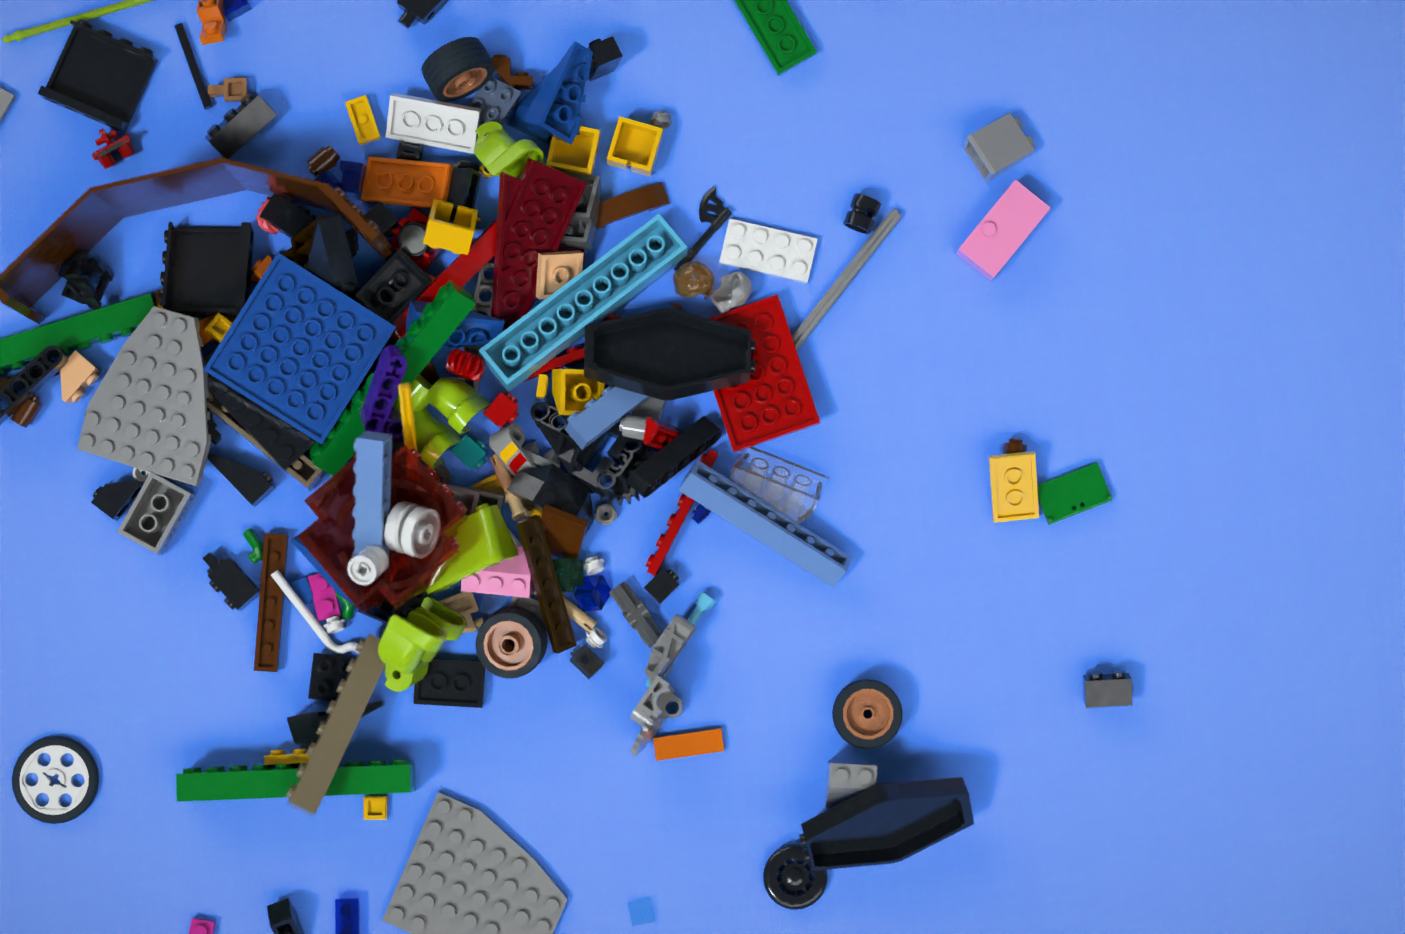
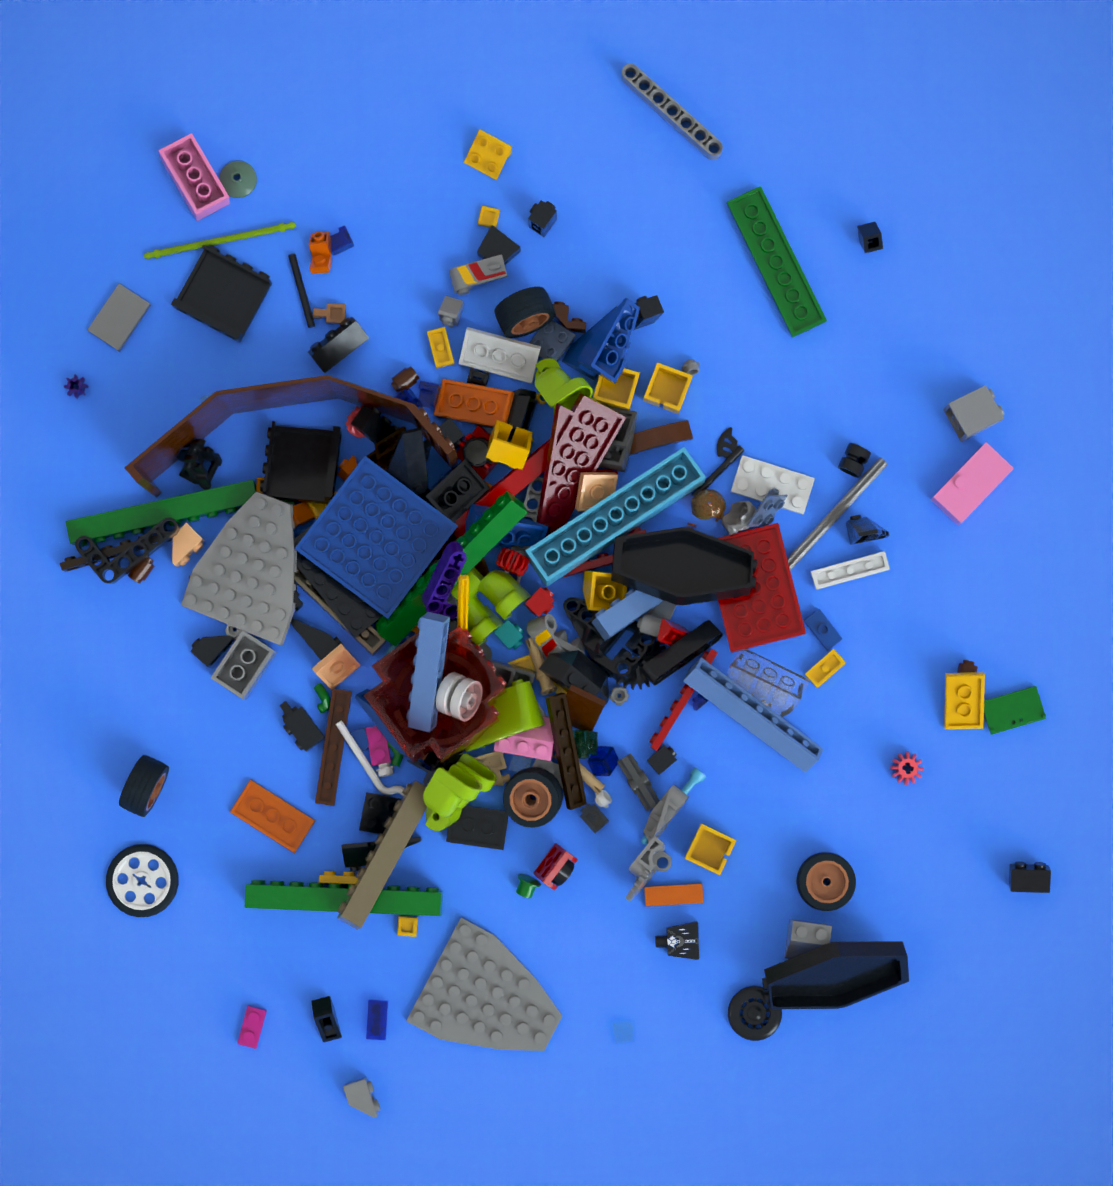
camera: 10 degrees right, 0 degrees up
(46, 666) = (143, 785): none -> black wheel
(103, 154) = (222, 358): red hips -> none
(205, 690) = (272, 816): none -> orange tile
(218, 327) = (308, 514): yellow tile -> none
(266, 506) = (336, 666): none -> light nougat plate
(368, 565) = (421, 723): white wheel -> none
(371, 76) = (450, 311): none -> light grey slope
(398, 28) = (477, 273): none -> light grey door
(513, 748) = (527, 885): none -> green piece
(542, 387) = (574, 584): yellow tile -> none
(545, 723) = (555, 867): none -> piece
(593, 565) = (605, 738): white plate -> none
(700, 798) = (680, 941): none -> black torso
(726, 686) = (709, 848): none -> yellow piece
(763, 279) = (767, 509): none -> sand blue hinge
(841, 416) = (823, 629): none -> blue plate
(847, 462) = (825, 668): none -> yellow plate
(867, 344) = (850, 570): none -> white plate
(880, 295) = (864, 530): none -> wedge
(956, 566) = (902, 773): none -> coral gear

